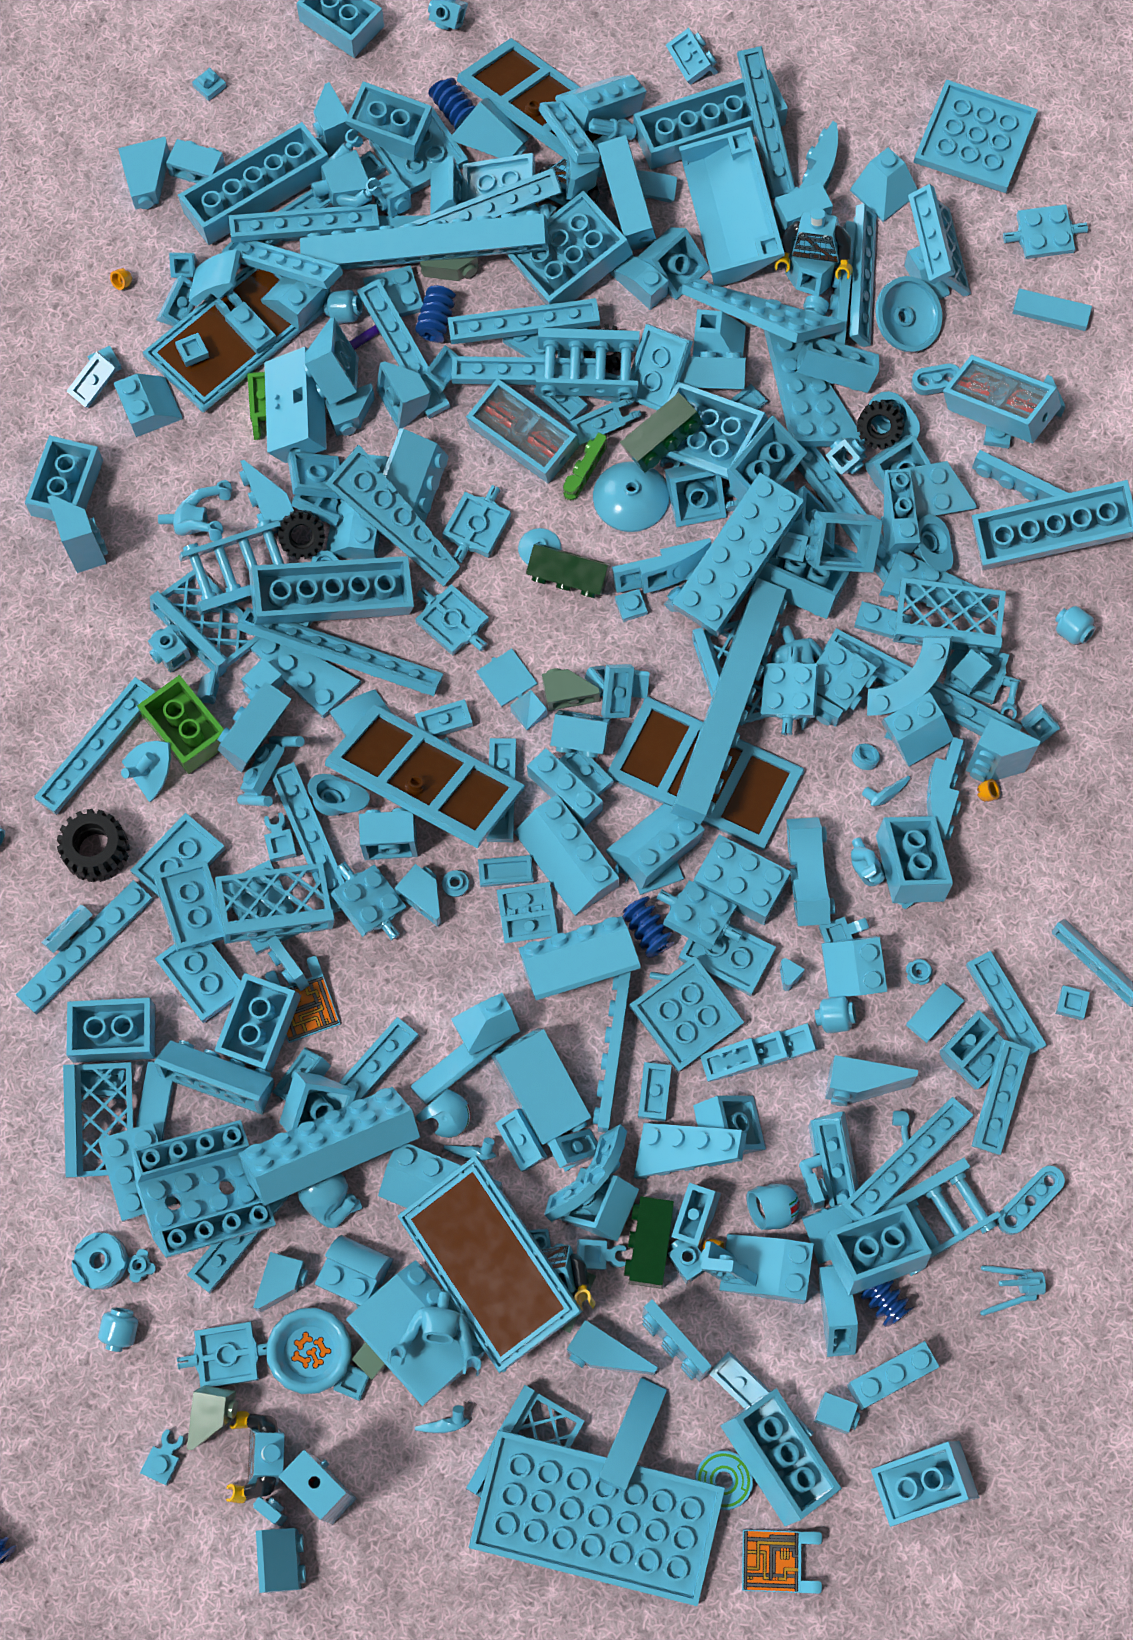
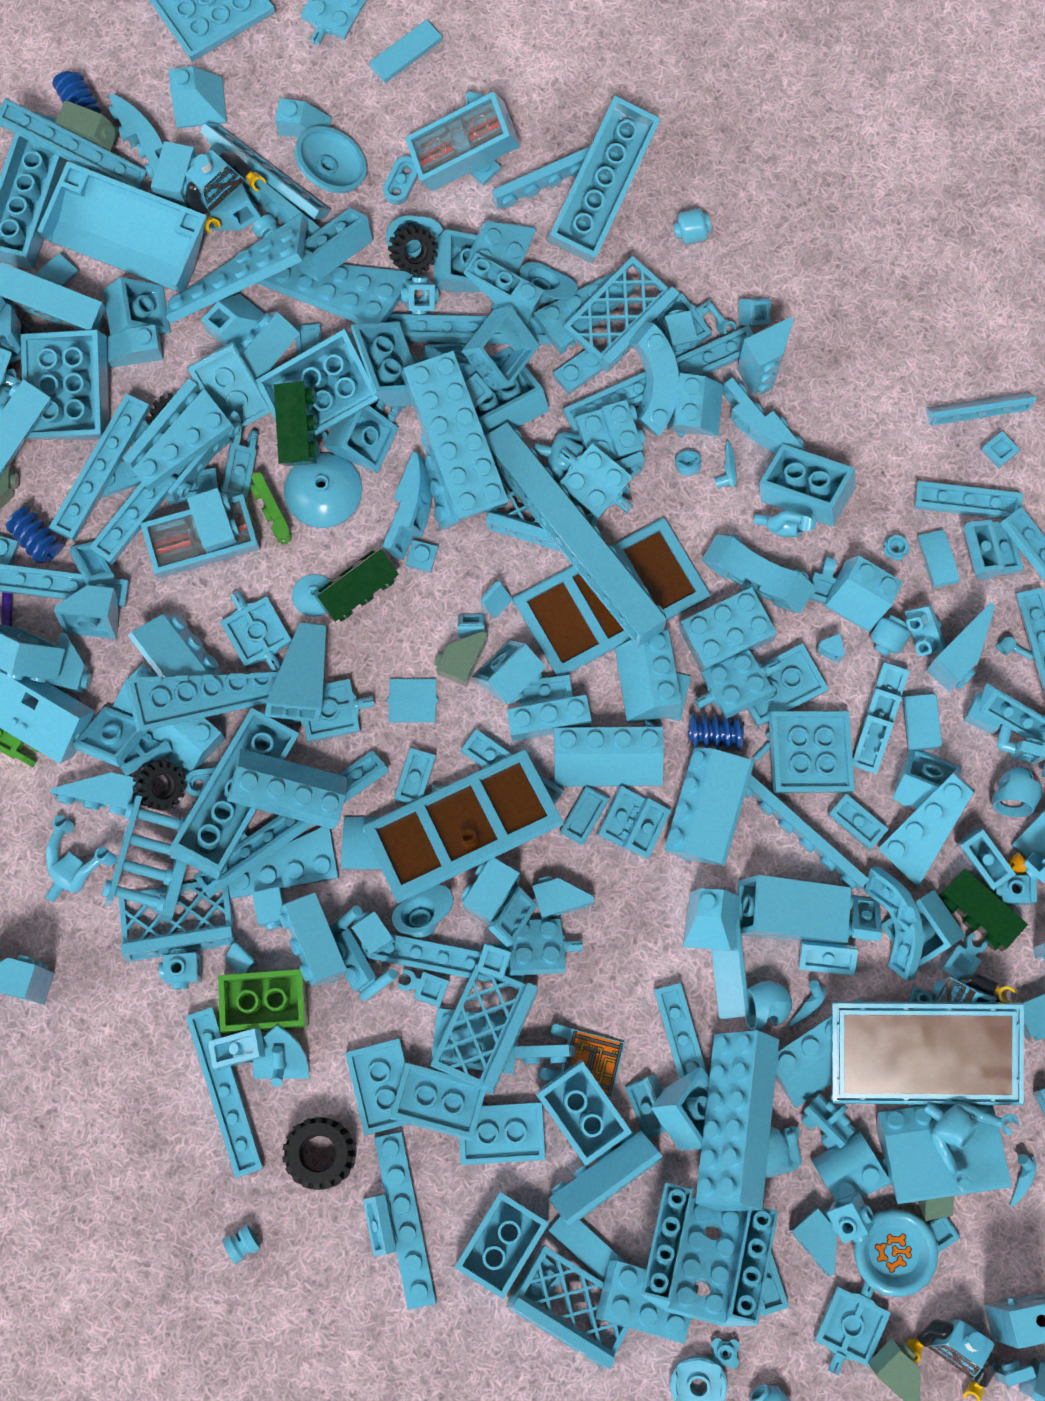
camera: 55 degrees left, 5 degrees up
(132, 728) = (237, 1049): none -> medium azure slope
(291, 767) = (372, 933): none -> medium azure brick
(310, 1291) = (851, 1218): none -> medium azure brick
(331, 872) = (494, 961): none -> medium azure plate
(360, 623) = (288, 789): none -> medium azure slope
(378, 863) = (512, 916): none -> medium azure plate
(382, 1227) = (831, 1121): none -> medium azure hips
(457, 891) = (567, 873): medium azure plate -> none
(459, 576) = (299, 682): none -> medium azure slope
(528, 710) = (456, 701): medium azure slope -> none
(537, 425) = (212, 520): none -> medium azure brick
(586, 362) = (188, 437): none -> medium azure wing
(617, 691) = (495, 617): medium azure plate -> none
(779, 1089) = (922, 722): none -> medium azure slope
(793, 122) = (87, 124): none -> sand green slope
(813, 102) = (74, 89): none -> blue piece
(861, 1038) = (925, 630): none -> medium azure hips
(938, 240) = (282, 90): medium azure fence -> none
(988, 790) = (783, 389): light orange hinge -> none

